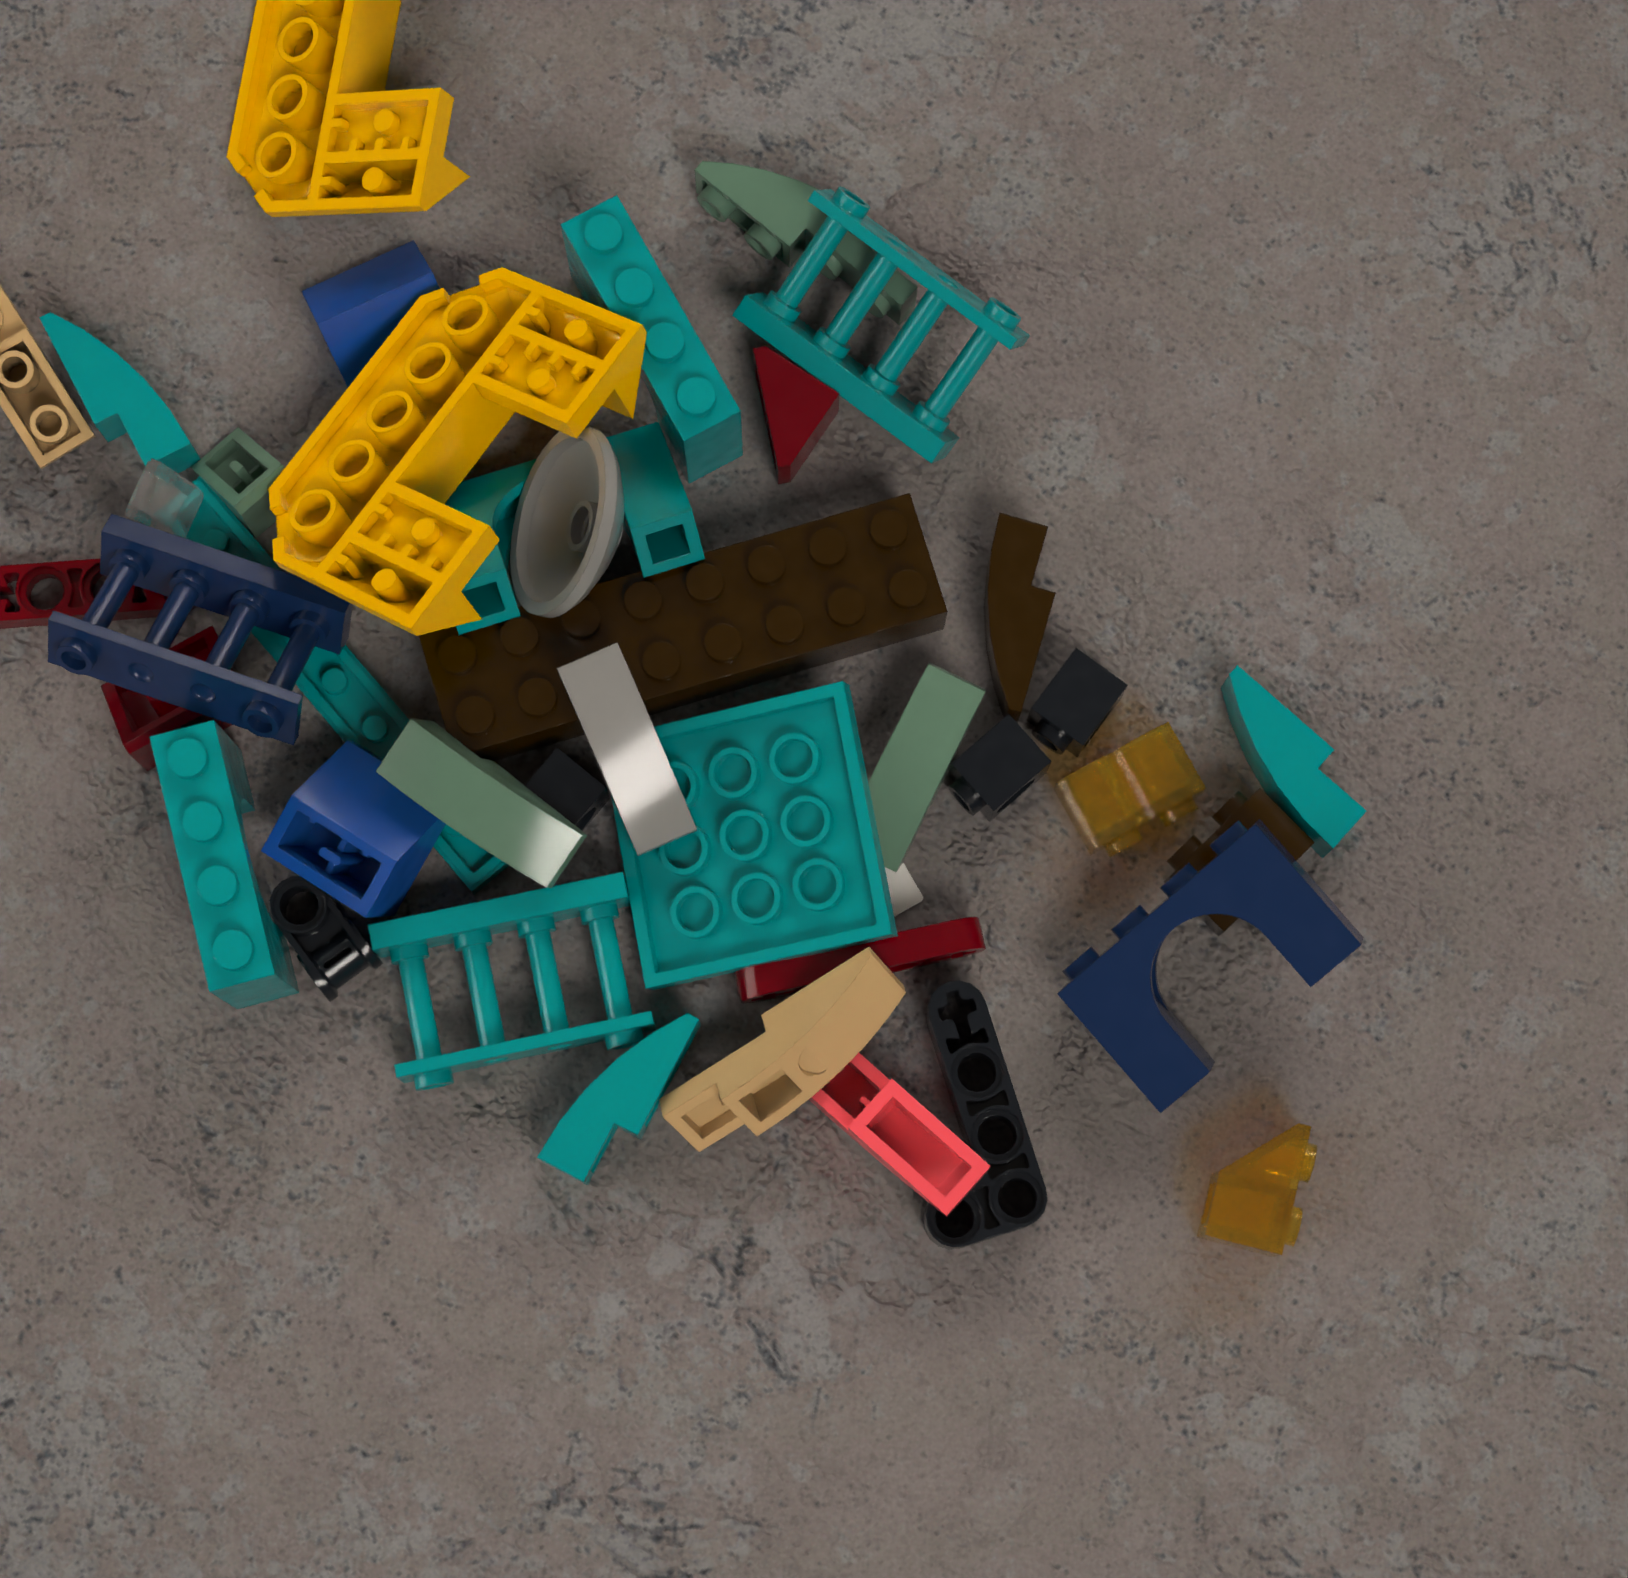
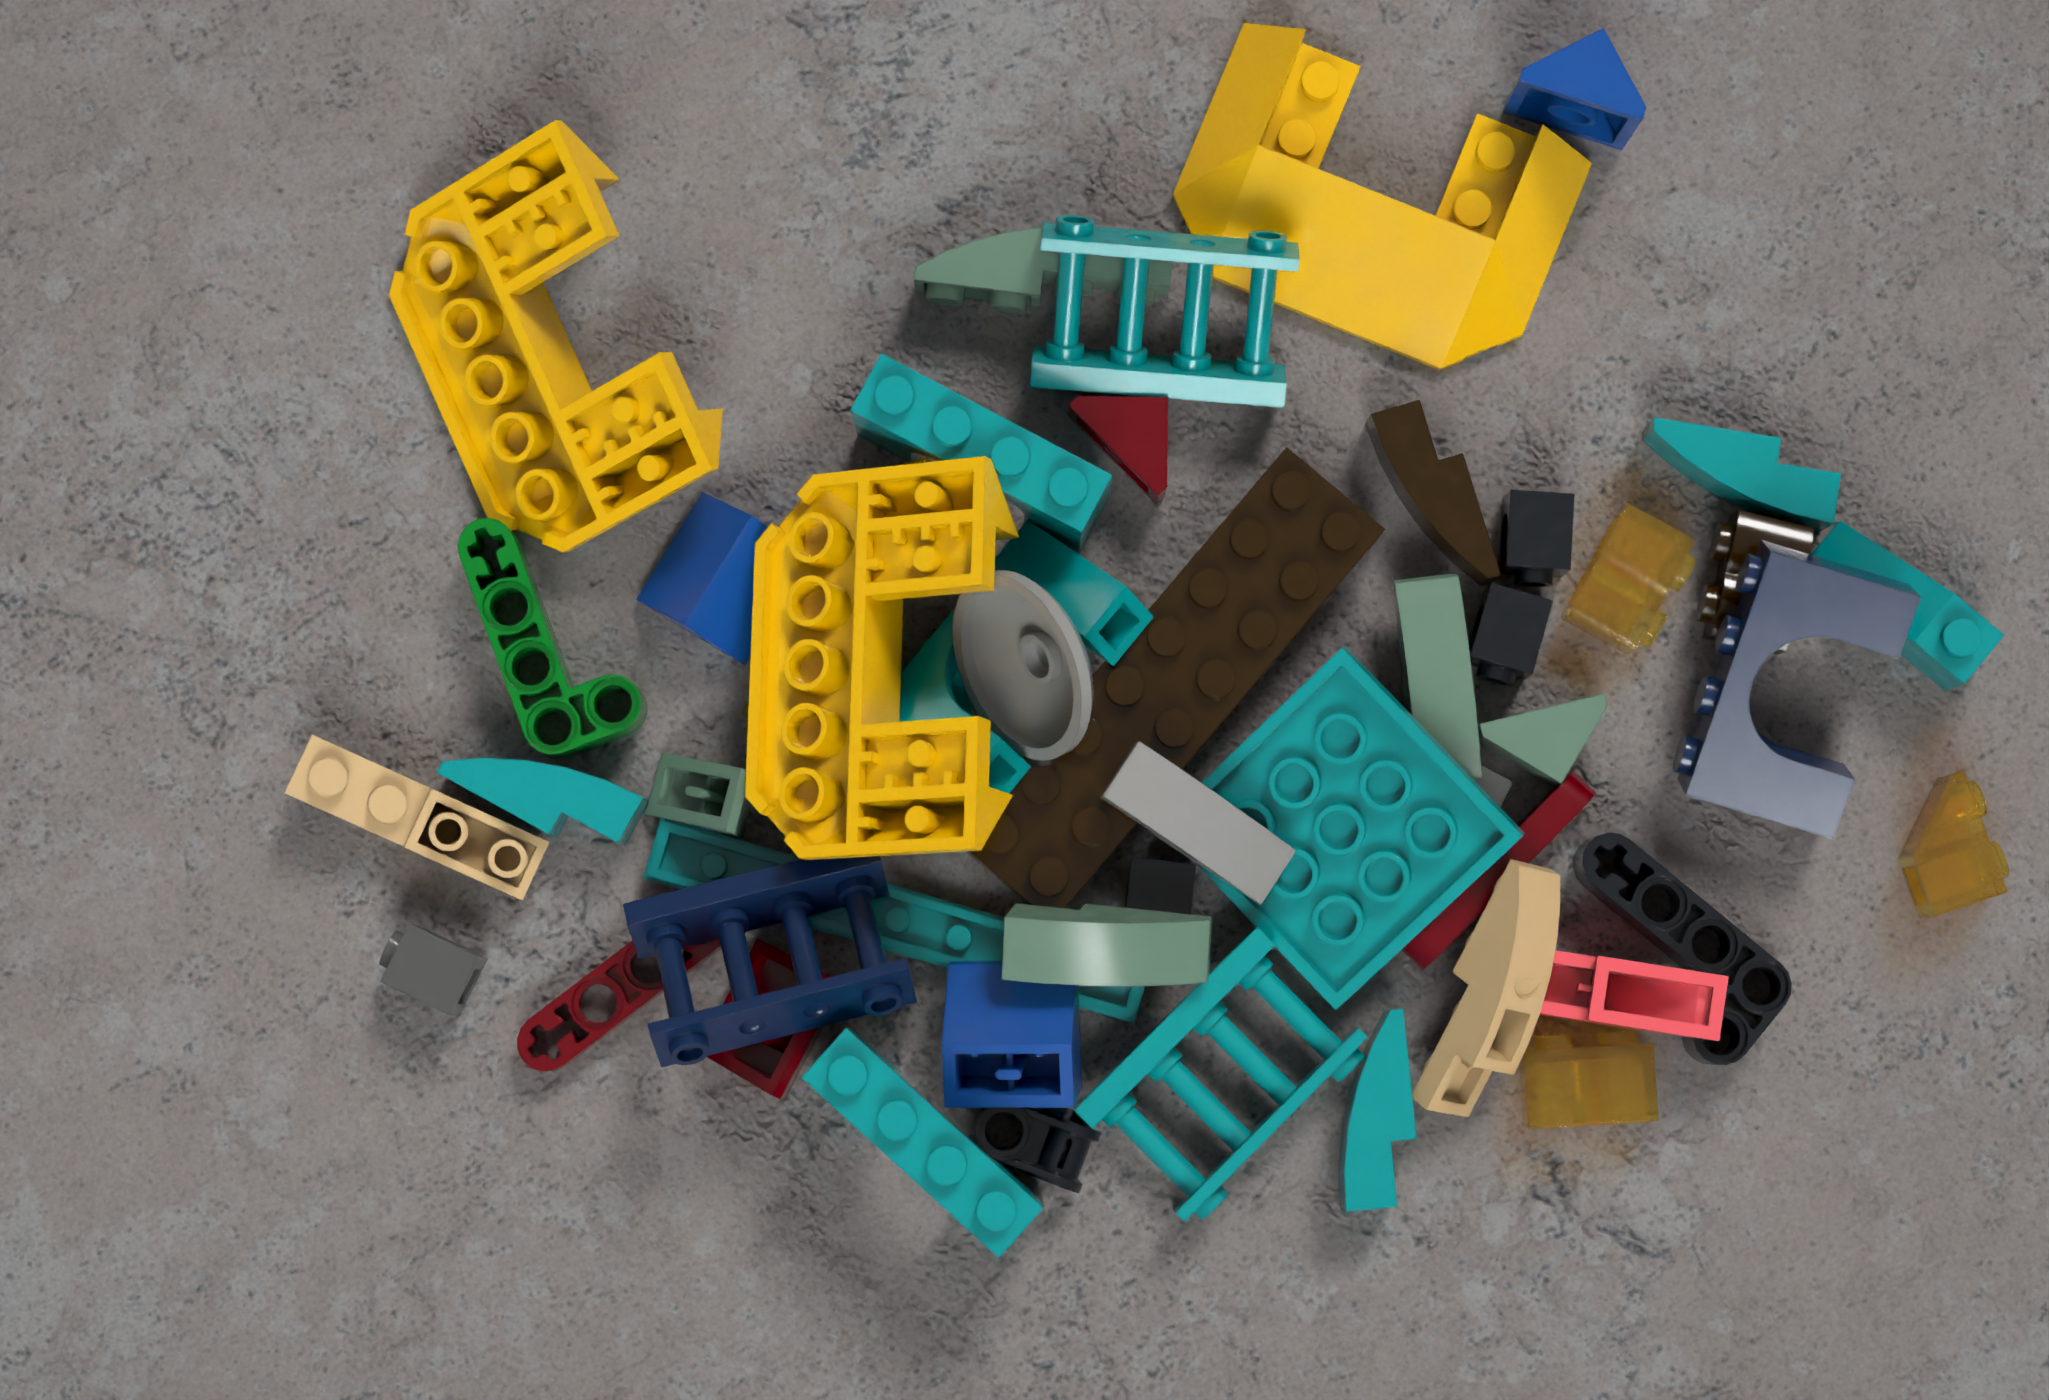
camera: 30 degrees left, 5 degrees up
(164, 500) = (654, 862): clear slope -> none
(200, 265) = (536, 635): none -> green beam
(817, 1187) = (1588, 1082): none -> clear yellow brick
(972, 875) = (1544, 739): none -> sand green slope
(1082, 390) = (1367, 261): none -> yellow slope
(1345, 358) = (1580, 93): none -> blue slope
(1364, 989) = (1946, 633): none -> teal slope

